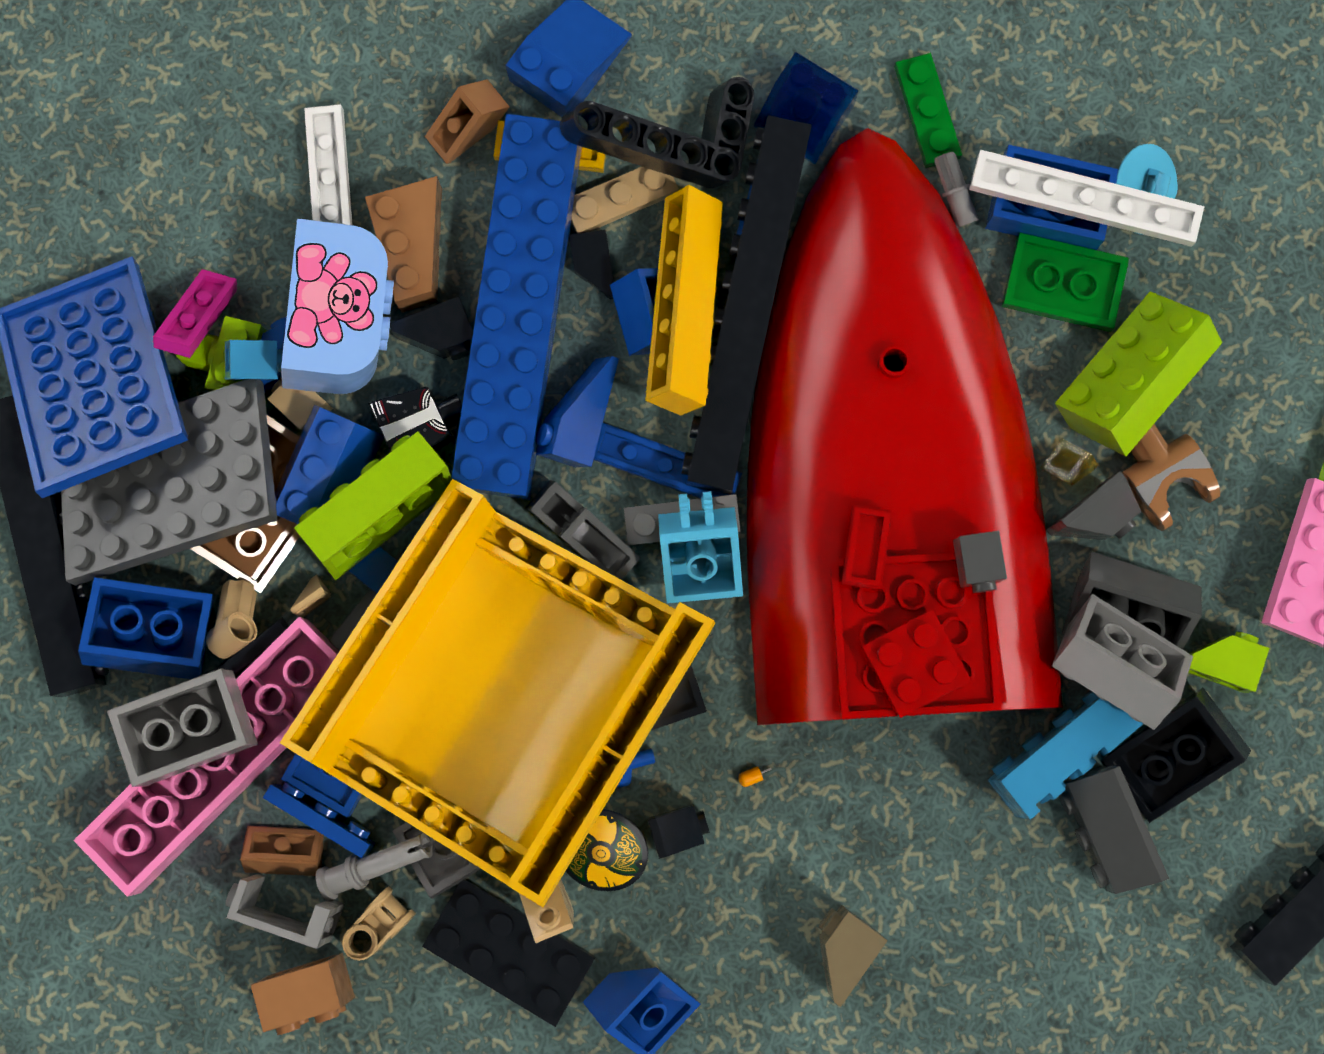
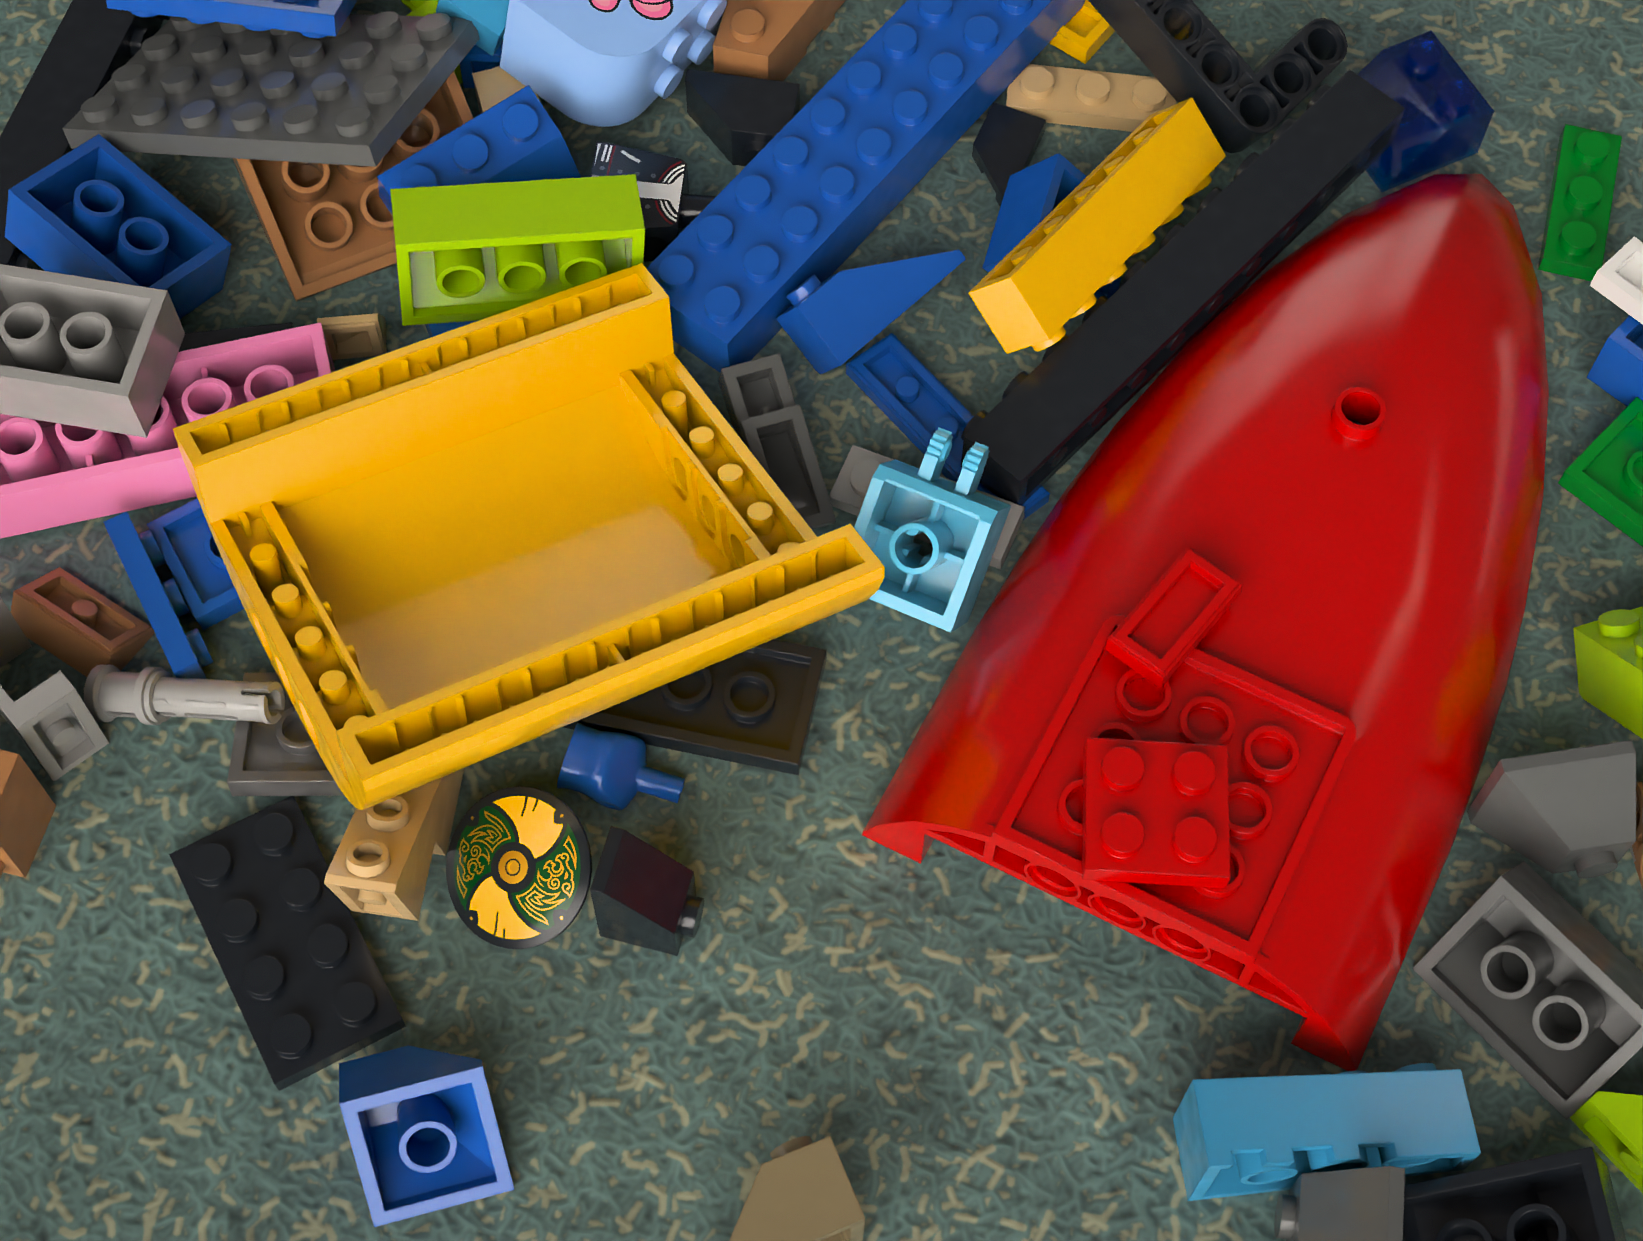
camera: 25 degrees right, 20 degrees down
(234, 619) = (235, 294): tan piece -> none
(378, 924) = (131, 787): tan piece -> none
(751, 776) = (808, 902): light orange piece -> none
(955, 189) = (1569, 305): light grey axle -> none
(980, 561) = (1340, 714): dark grey brick -> none
(1069, 463) = (1551, 728): clear yellow slope -> none
(1123, 662) = (1491, 1025): light grey brick -> none

